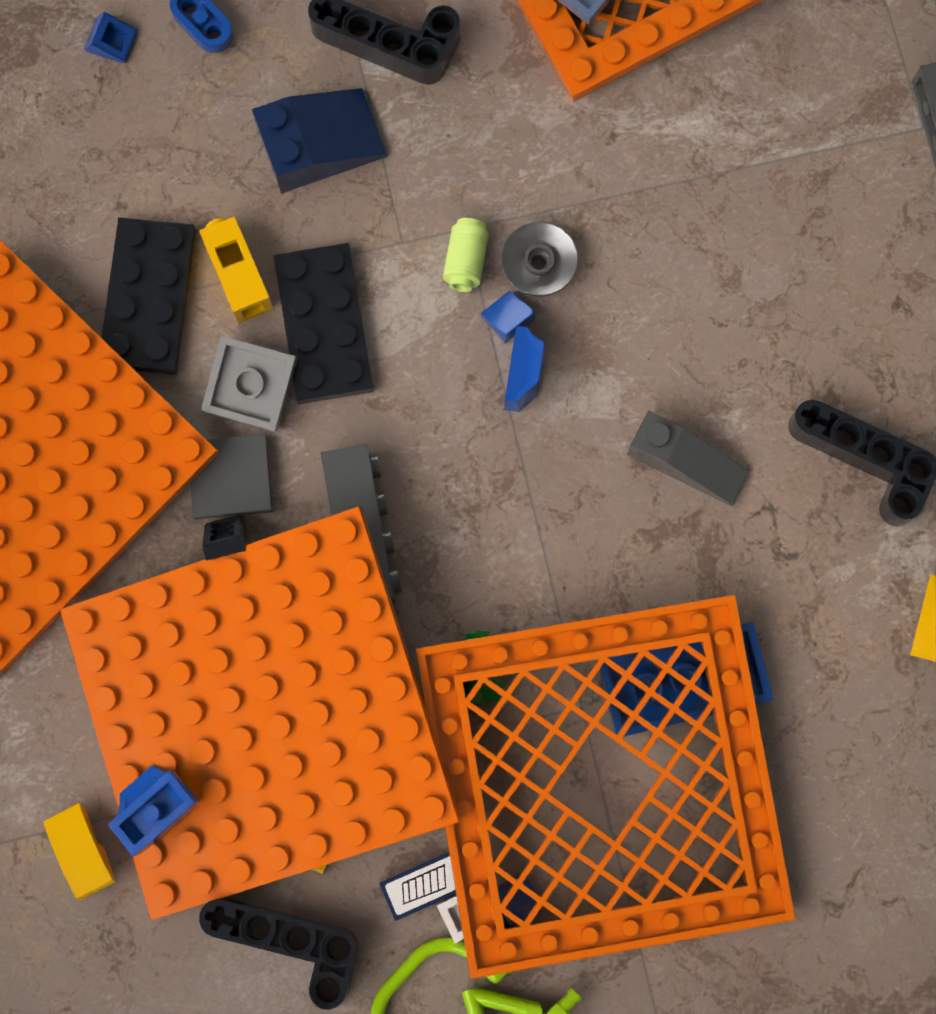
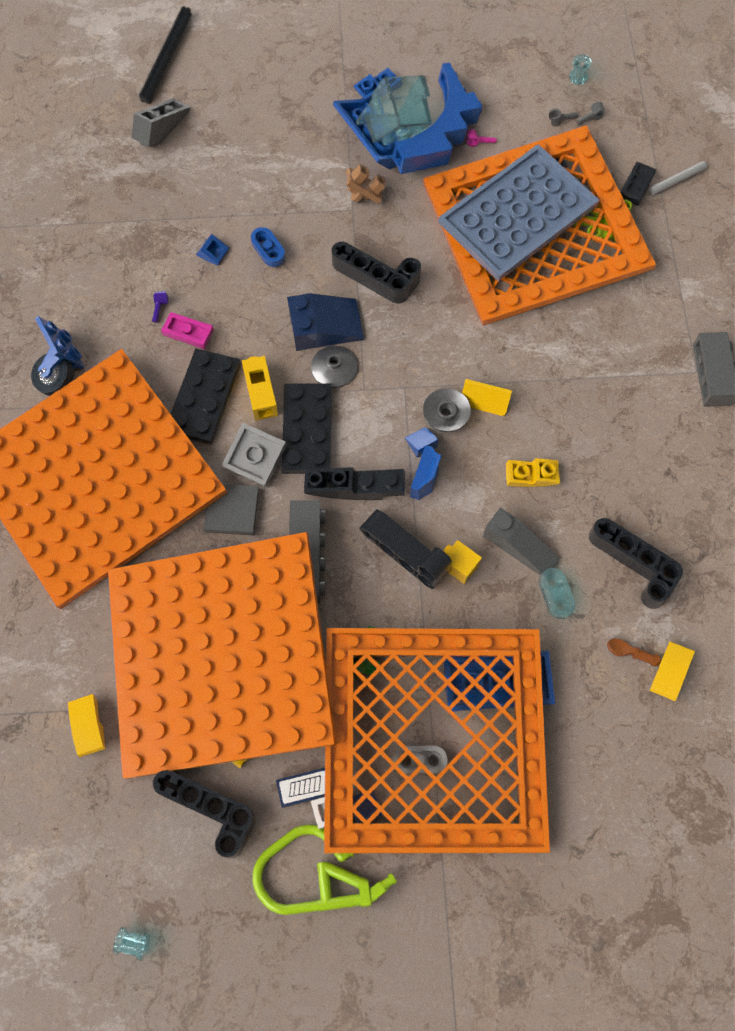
camera: 10 degrees right, 10 degrees down
(42, 139) = (160, 298): none -> dark purple hand
(99, 188) = (187, 330): none -> dark pink plate
(151, 809) = (137, 703): blue slope -> none
(224, 537) = (219, 542): black plate -> none
(350, 226) = (337, 374): none -> flat silver dish
(415, 406) = (354, 485): none -> black slope
(466, 254) = (401, 401): yellowish green head -> none
(512, 498) = (406, 550): none -> black beam
(588, 809) = (422, 754): none -> light grey plate
(598, 502) = (463, 561): none -> yellow brick
(599, 227) = (487, 397): none -> yellow slope
(688, 341) = (532, 474): none -> yellow slope
(755, 528) = (557, 594): none -> clear light blue plate
(860, 596) = (622, 648): none -> dark orange piece

